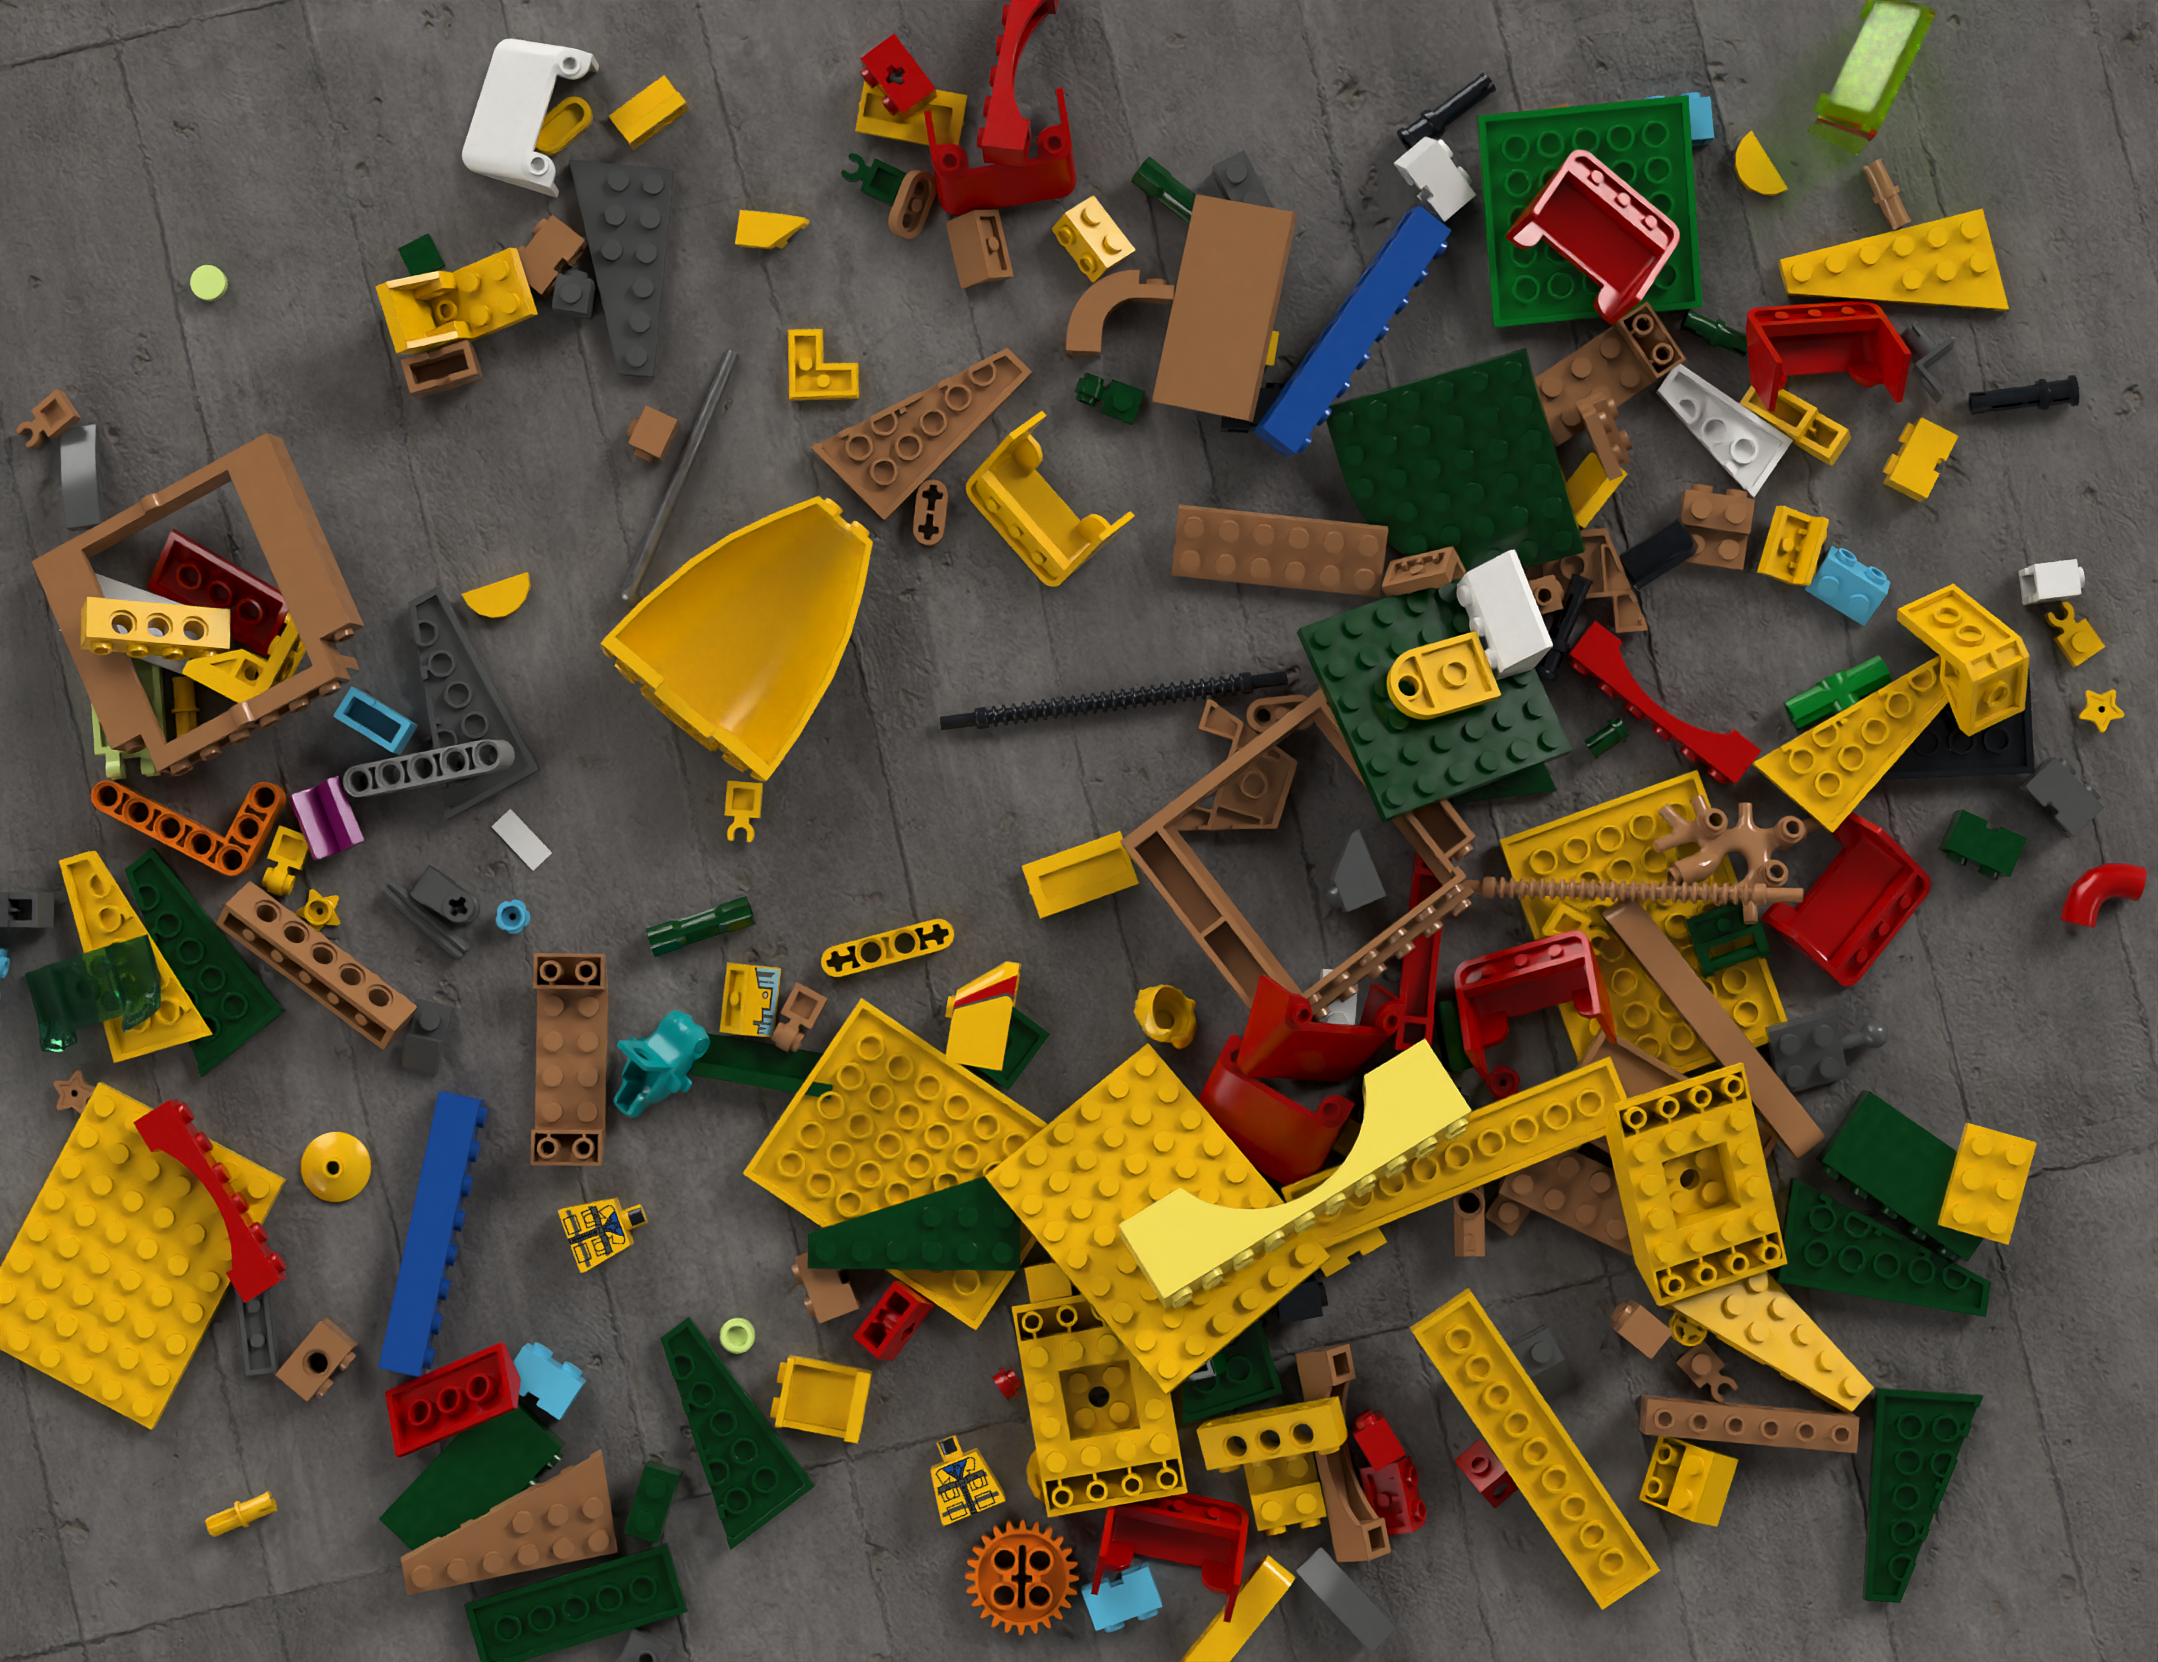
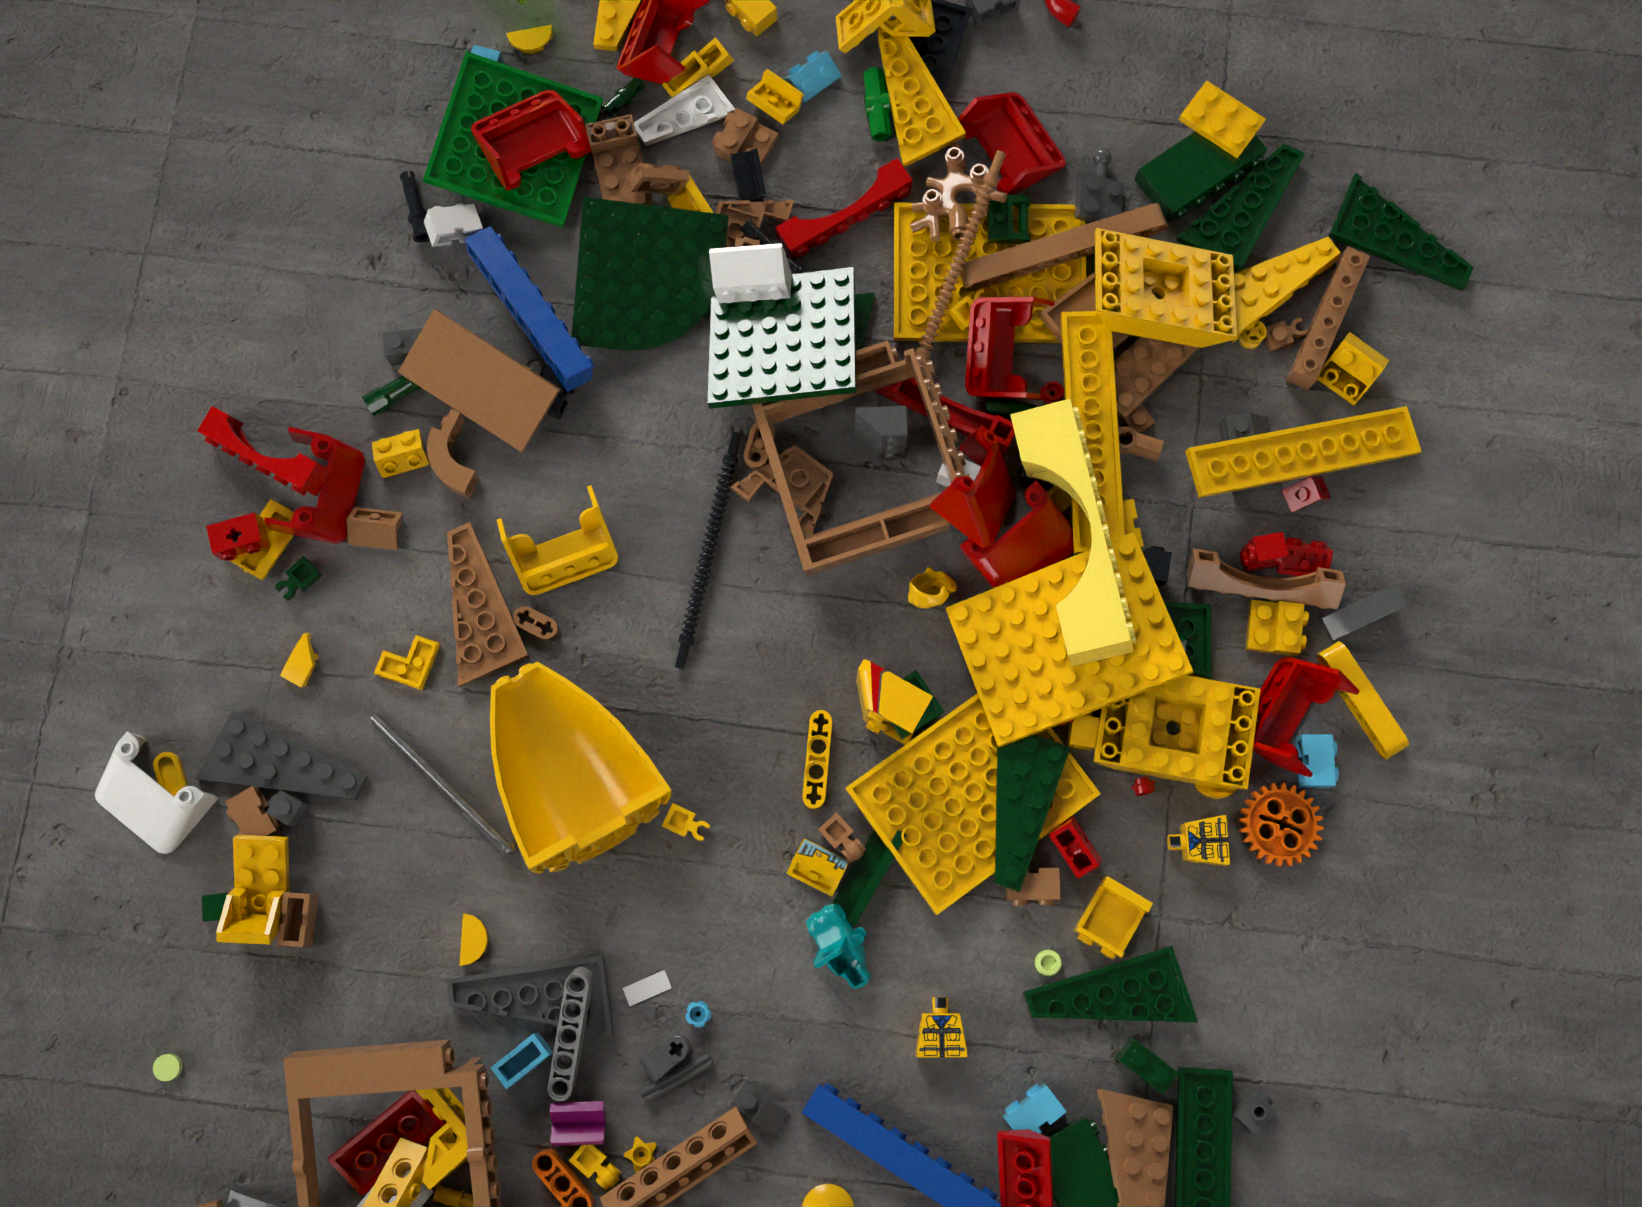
camera: 75 degrees left, 10 degrees down
(570, 1059) = (813, 1009): medium nougat slope -> none
(649, 112) = (188, 712): yellow panel -> none
(652, 434) = (405, 790): medium nougat brick -> none
(700, 926) = (753, 901): dark green axle -> none
(911, 205) = (326, 559): medium nougat plate -> none
(1079, 875) = (816, 613): yellow piece -> none
(1119, 401) = (512, 474): dark green plate -> none
(1279, 550) = (652, 407): medium nougat plate -> none
(1321, 1415) = (1231, 606): yellow brick -> none
(1422, 572) = (701, 319): medium nougat bracket -> none
(1445, 678) = (776, 321): yellow plate -> none
(1607, 737) = (852, 247): dark green pin -> none
(1639, 1327) = (1244, 360): medium nougat brick -> none
(1991, 850) = (1001, 58): dark green brick -> none

